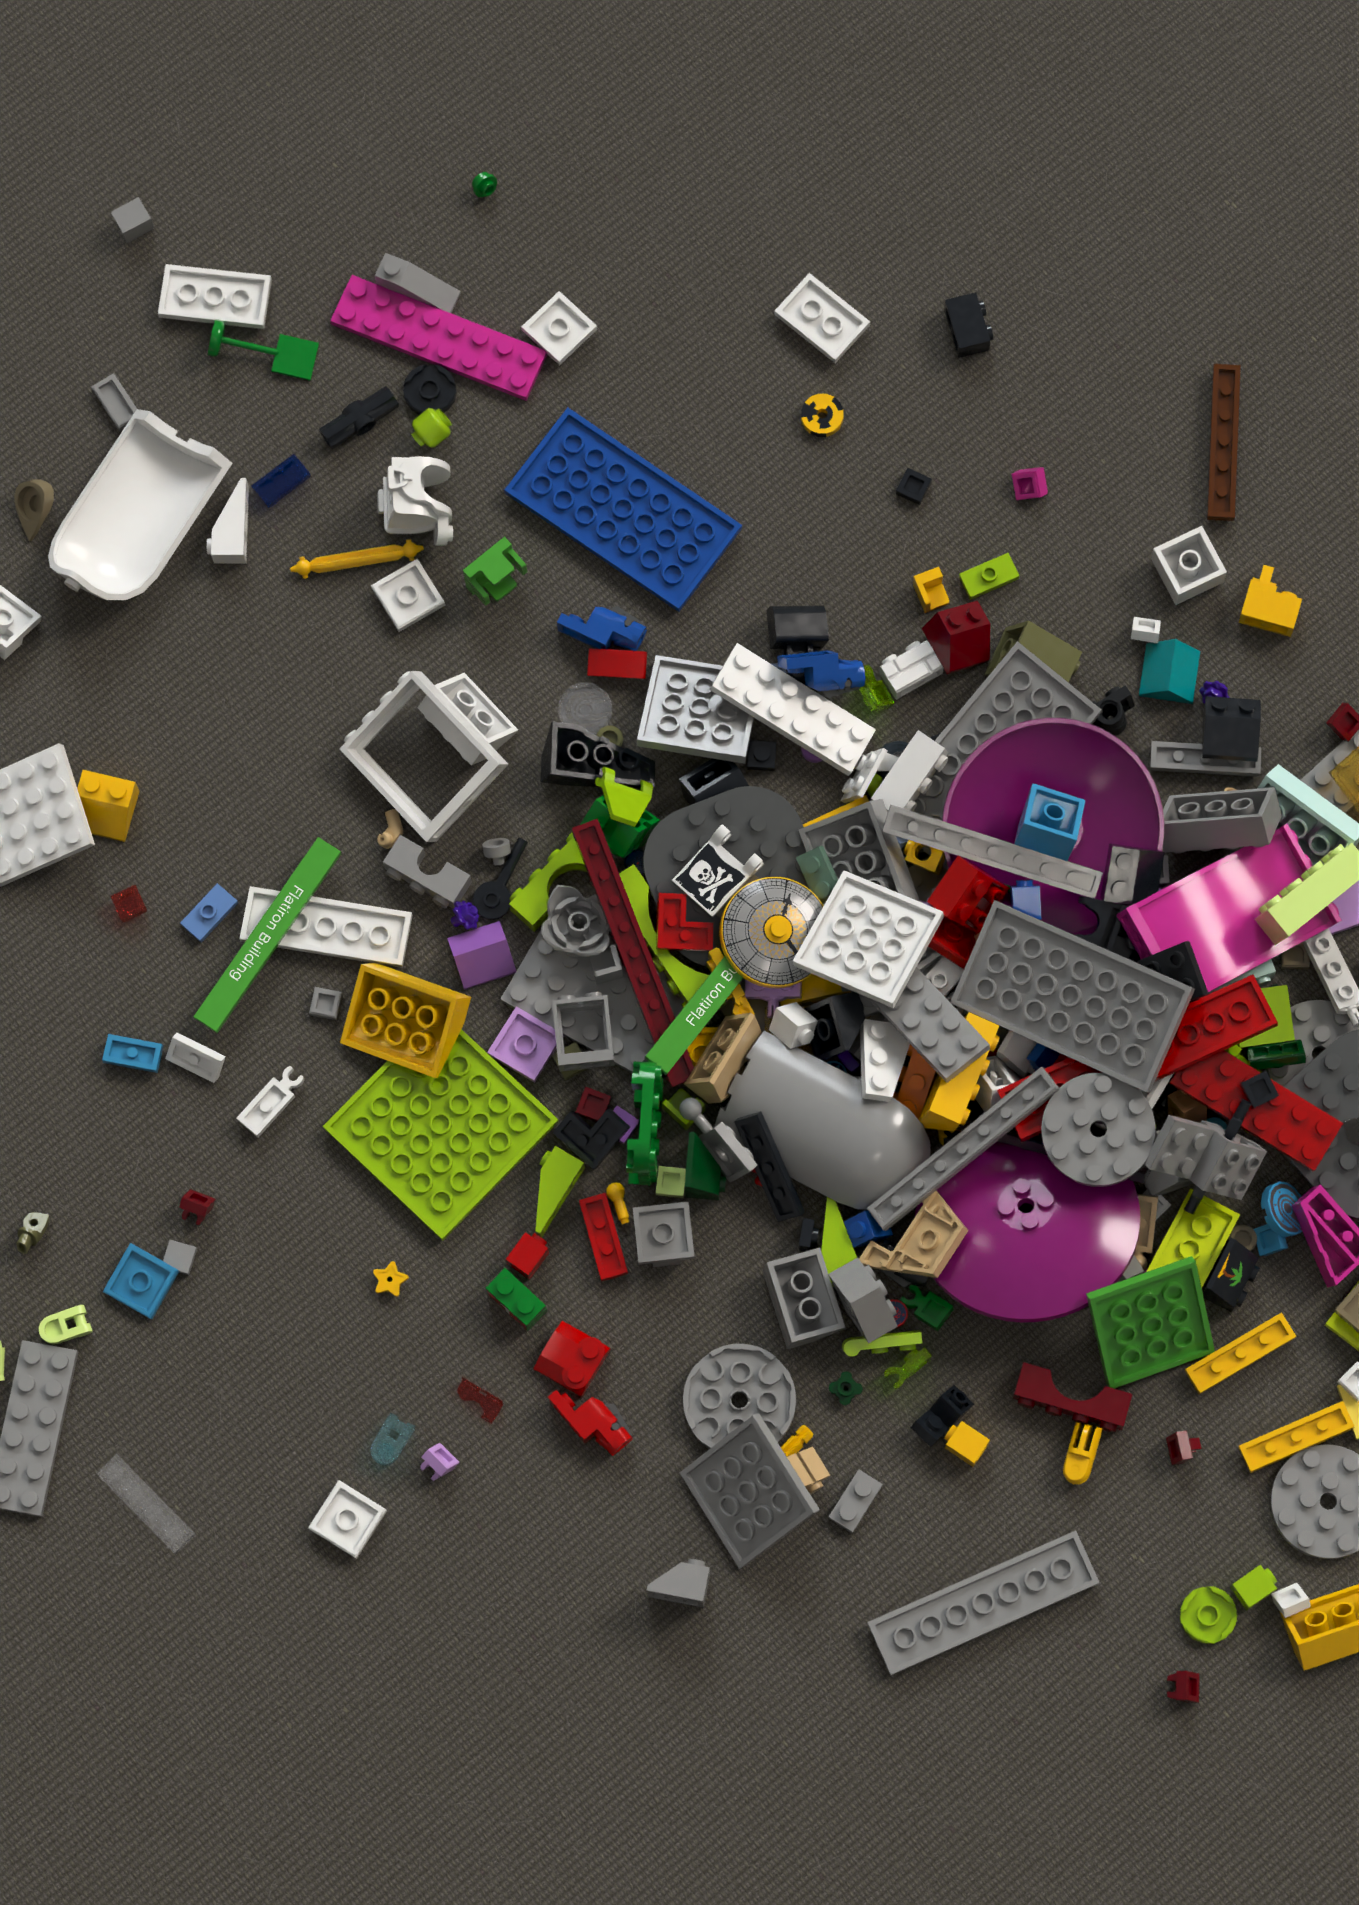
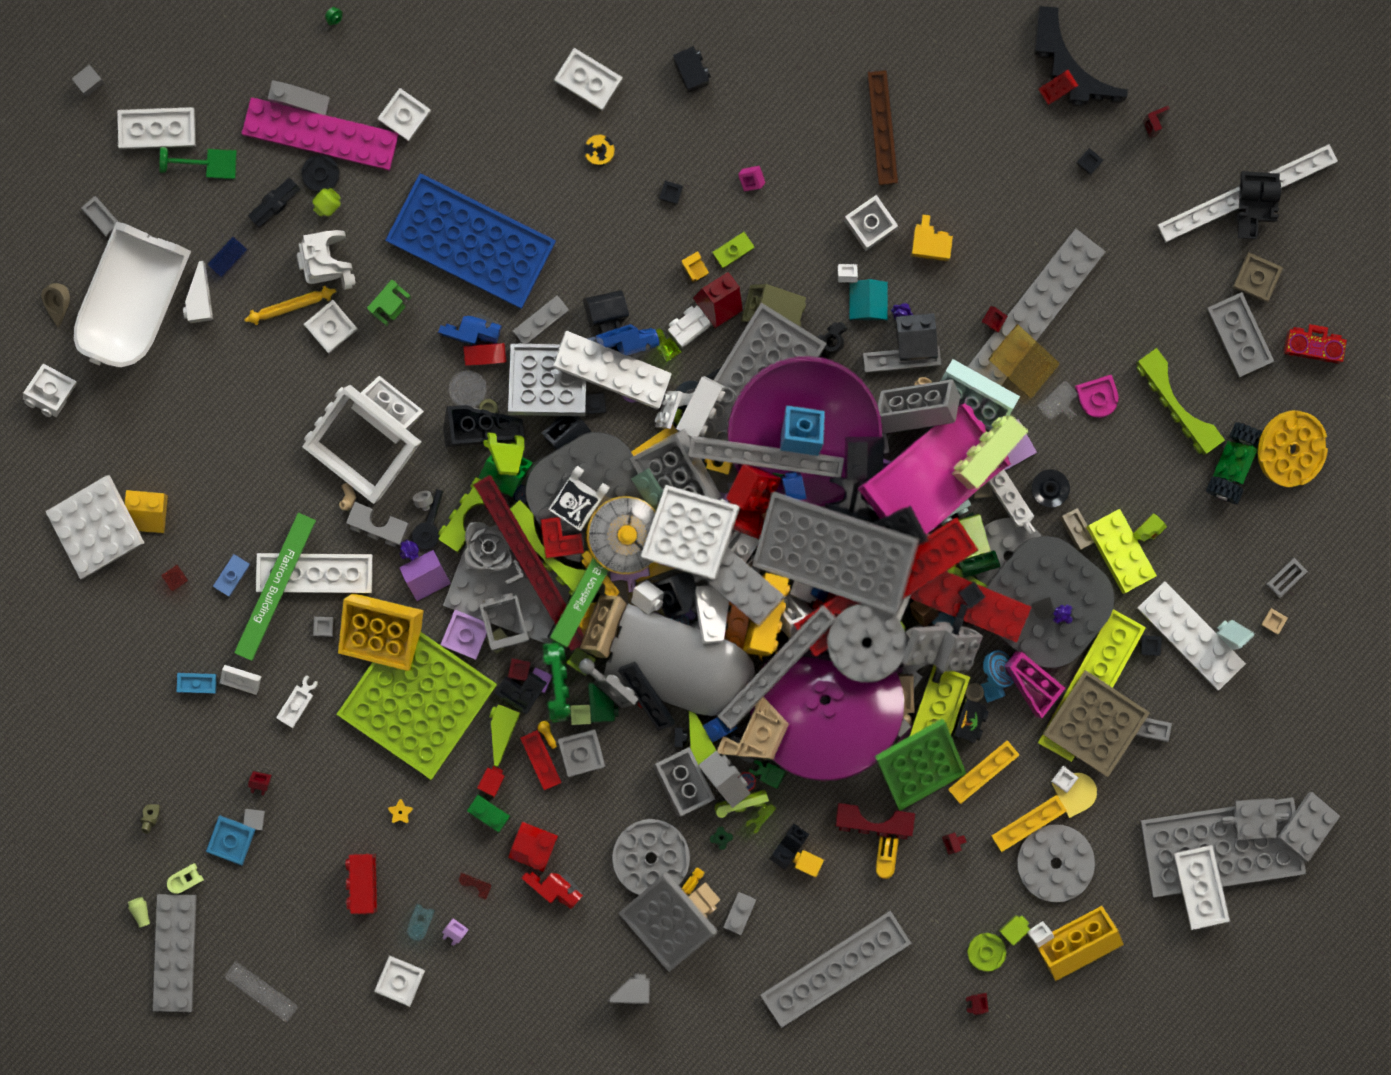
camera: 15 degrees left, 10 degrees up
(317, 1368) = (361, 883): none -> red brick
(703, 631) = (541, 320): none -> light grey plate

